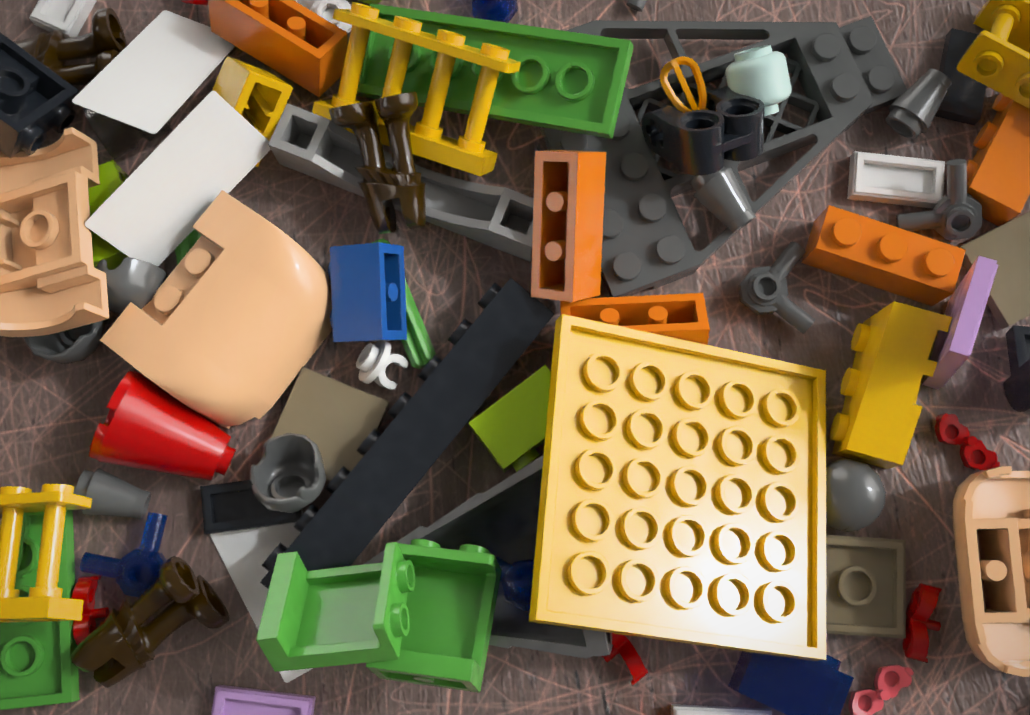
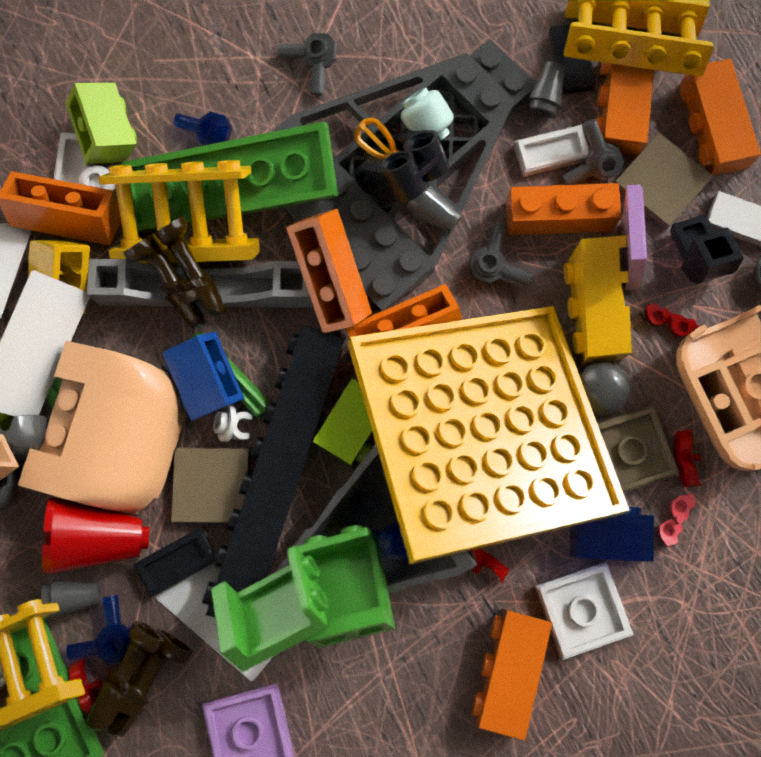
camera: 20 degrees left, 0 degrees up
(288, 473) = (195, 528): dark grey hair -> none

